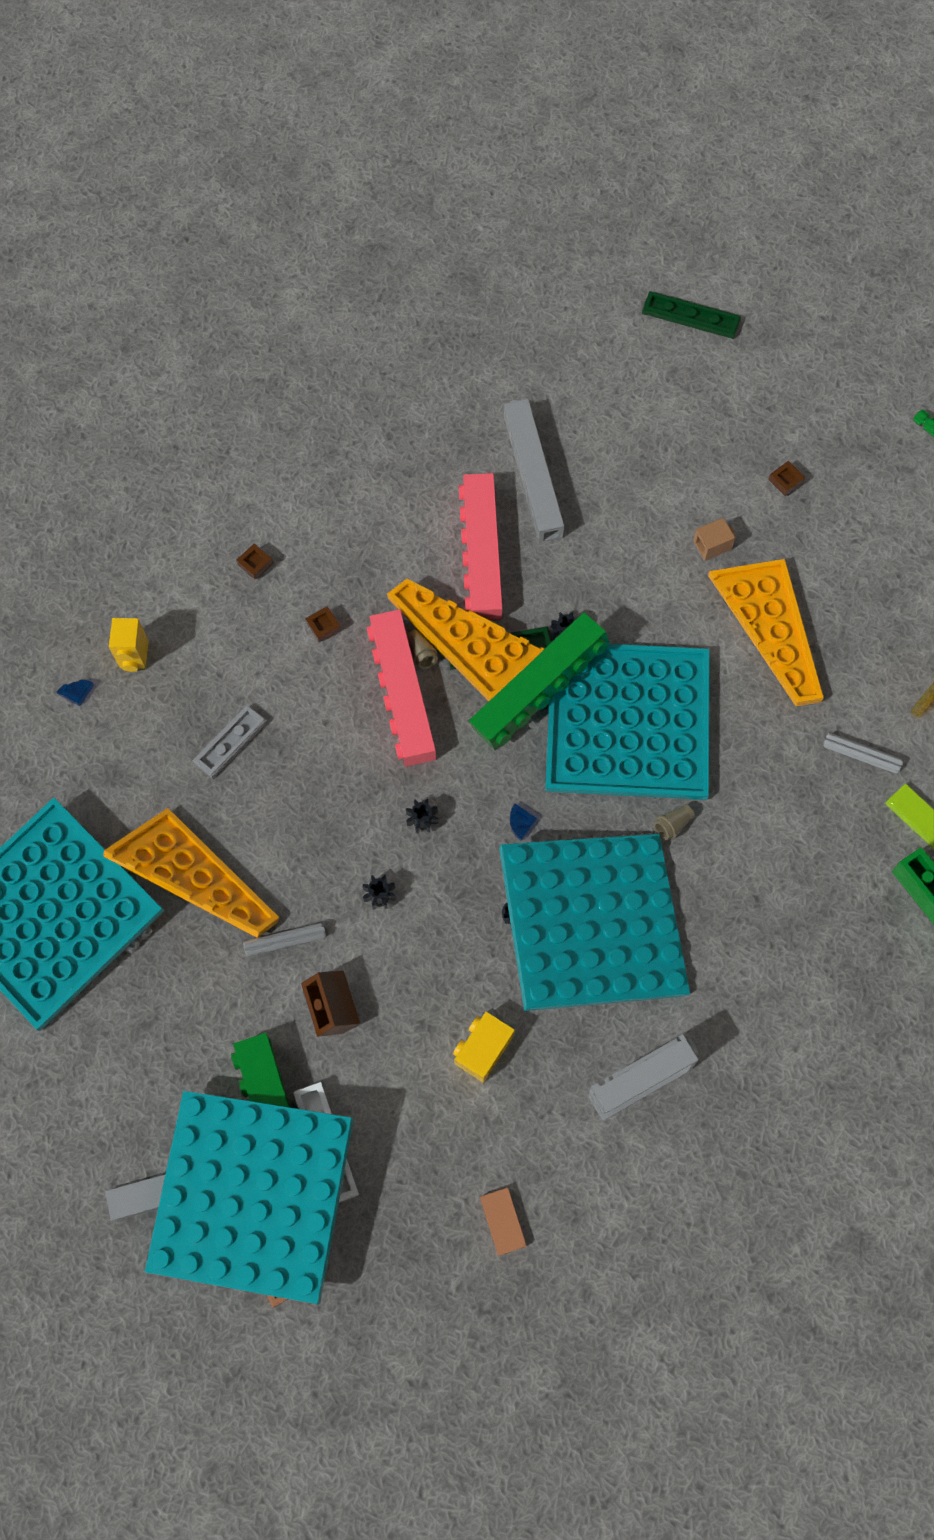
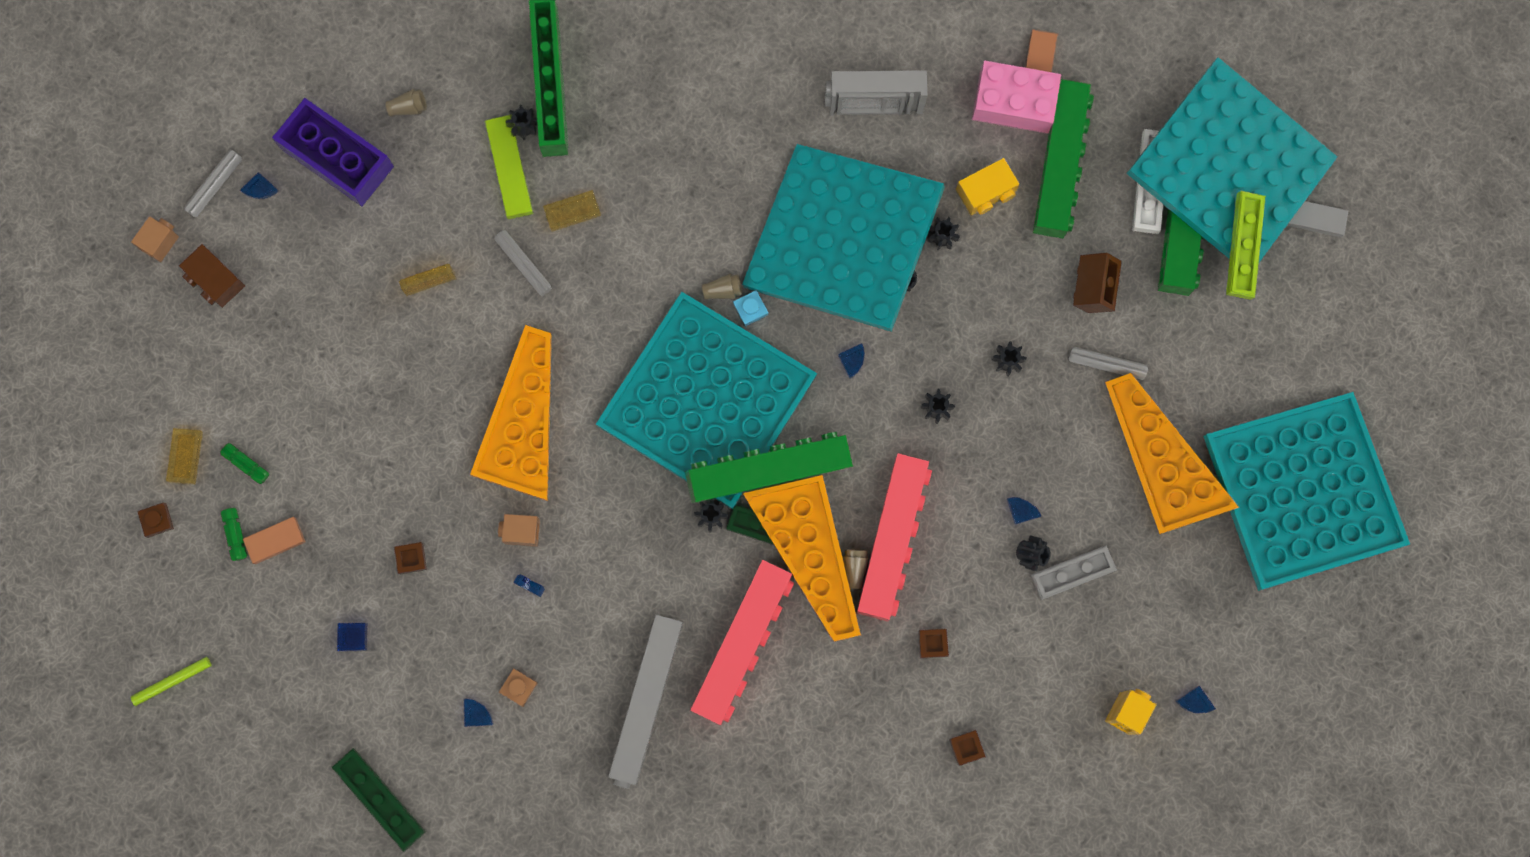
camera: 155 degrees left, 10 degrees up
(200, 1107) = (1245, 245): none -> lime tile
(273, 734) = (1033, 553): none -> black gear
(300, 770) = (1022, 510): none -> clear blue tile
(426, 1117) = (1062, 160): none -> green brick
(499, 970) = (942, 240): none -> black gear
(504, 1156) = (1016, 97): none -> bright pink brick
(638, 434) = (518, 687): none -> medium nougat plate
(638, 819) = (750, 308): none -> medium azure plate
(658, 401) = (476, 714): none -> clear blue tile
(680, 504) = (529, 585): none -> clear blue tile
(790, 404) = (352, 637): none -> clear blue plate
(852, 822) = (572, 210): none -> clear yellow tile
(901, 314) = (170, 681): none -> lime bar
(901, 440) = (274, 540): none -> nougat tile

